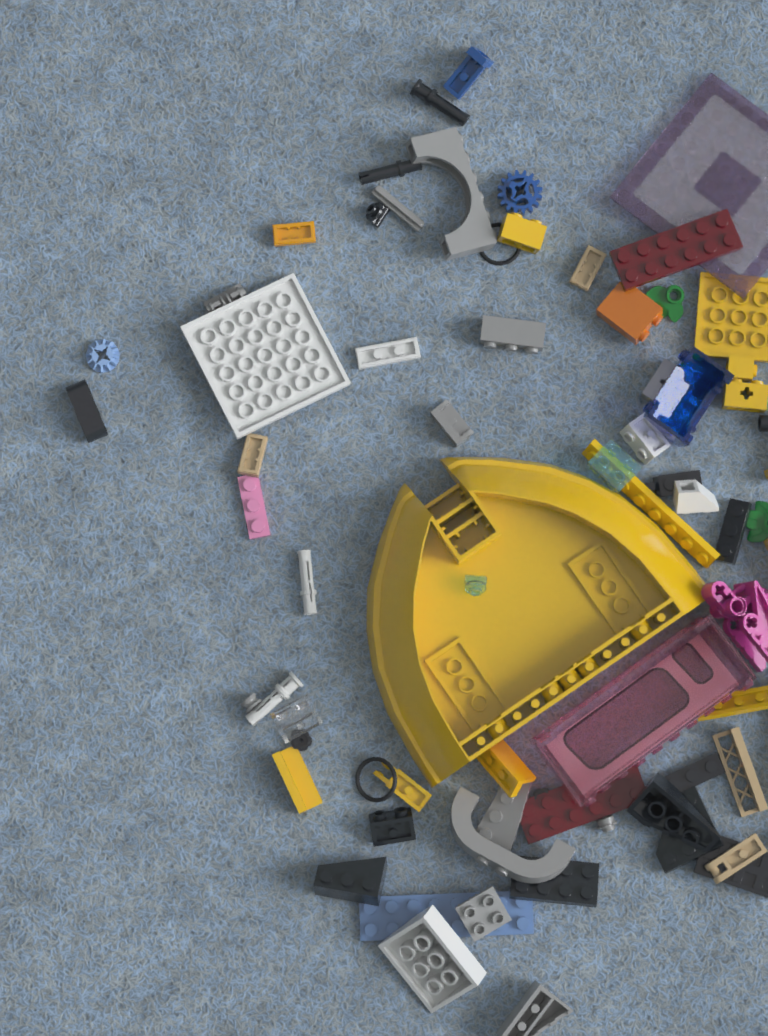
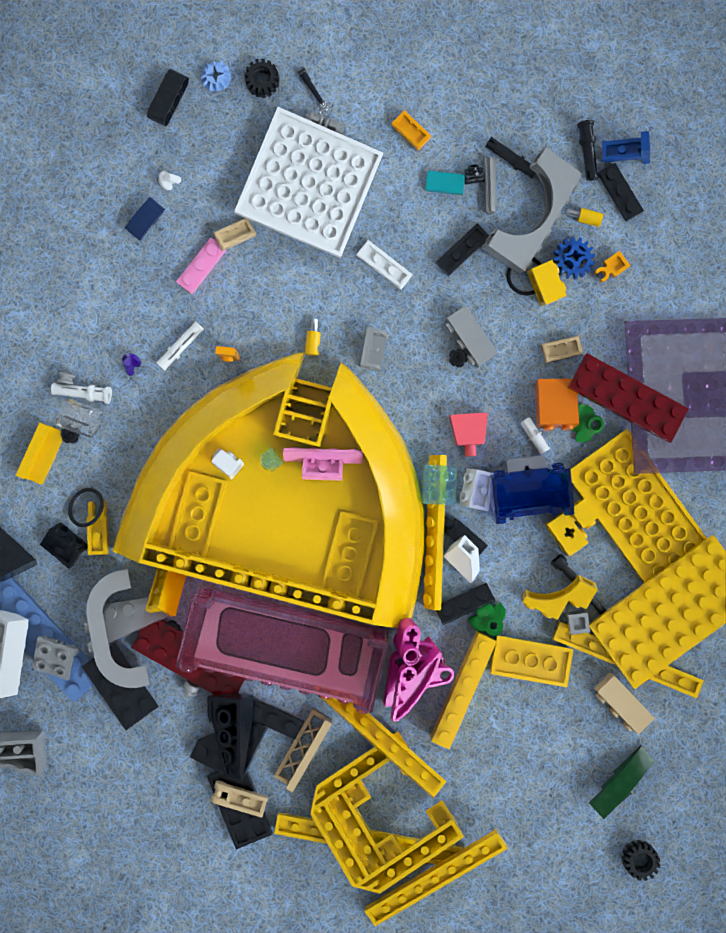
camera: 45 degrees right, 5 degrees up
(149, 327) = (257, 68): none -> black tyre
(155, 473) = (167, 179): none -> white plate
(173, 518) = (144, 218): none -> dark blue slope
(210, 288) = (325, 107): none -> piece
(284, 635) = (130, 361): none -> dark purple plate
(352, 546) = (227, 354): none -> light orange plate
(362, 243) = (445, 183): none -> teal tile
(399, 466) = (312, 344): none -> yellow piece
(432, 277) = (462, 250): none -> black plate
(446, 622) = (227, 463): none -> white brick
(494, 152) = (586, 216): none -> yellow piece
(497, 107) = (620, 192): none -> black plate
(515, 543) = (322, 463): none -> bright pink bracket
(525, 359) = (458, 363): none -> black plate
(555, 165) = (614, 266): none -> light orange plate
(590, 403) = (469, 431): none -> coral torso
(640, 352) = (534, 435): none -> white axle

